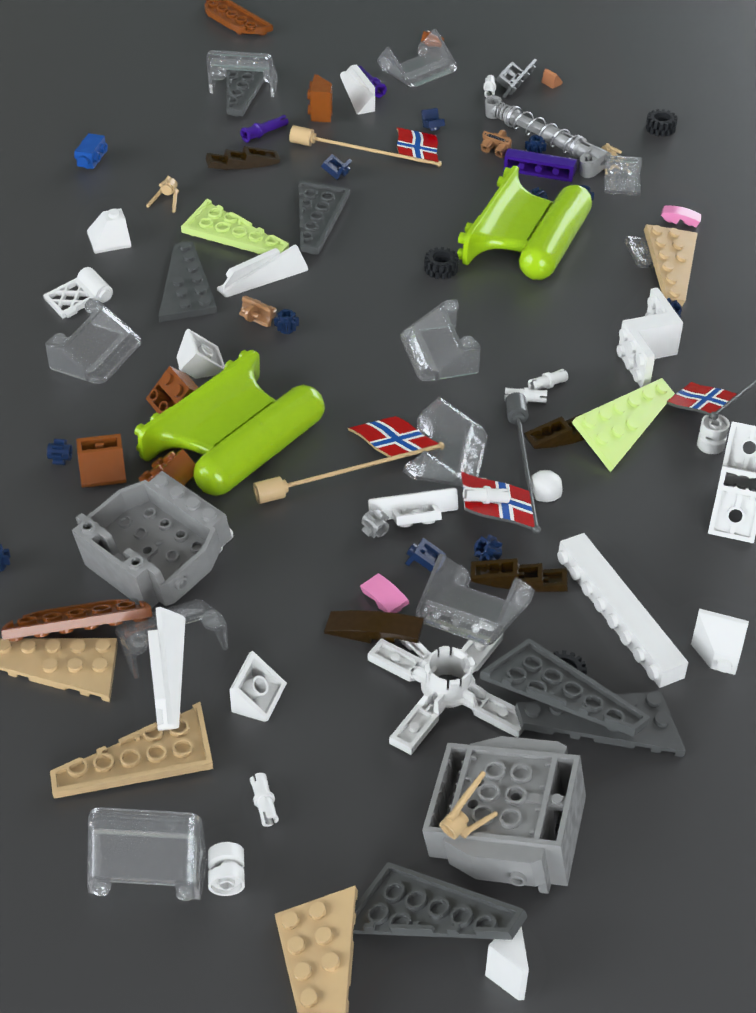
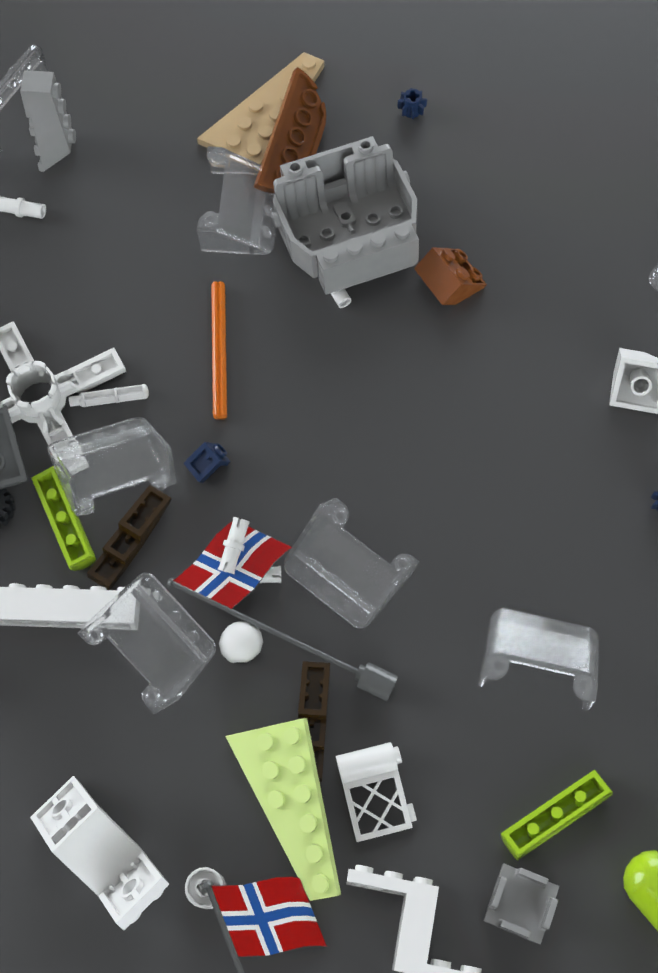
camera: 120 degrees right, 25 degrees up
(59, 451) = (537, 194): dark blue gear -> none
(101, 460) = (500, 223): dark orange slope -> none
(139, 758) = (117, 150): tan wing -> none
(164, 781) = (47, 117): none -> light grey wedge
(166, 659) = (182, 168): white wedge -> none
(170, 389) = (579, 331): dark orange slope -> none
(231, 424) = (491, 361): lime piece -> none
(256, 689) = (131, 244): white slope -> none
(318, 593) = (219, 376): none -> orange axle
(375, 523) = (274, 433): light grey gear -> none
(375, 625) = (140, 366): dark brown slope -> none
(385, 594) = (172, 398): bright pink slope -> none
(388, 436) = (402, 520): flag -> none
(416, 507) = (273, 482): white bracket -> none
(488, 548) = (176, 522): dark blue gear -> none
(531, 395) = (398, 709): white pin -> none
(532, 311) = (556, 815): none -> lime brick
(536, 617) = (63, 520): none -> lime brick
(548, 380) = (413, 753): white pin -> none
(579, 396) = (373, 766): none -> white piece
(592, 311) = (522, 903): none -> light grey panel
(592, 513) = (154, 638): none -> clear windscreen

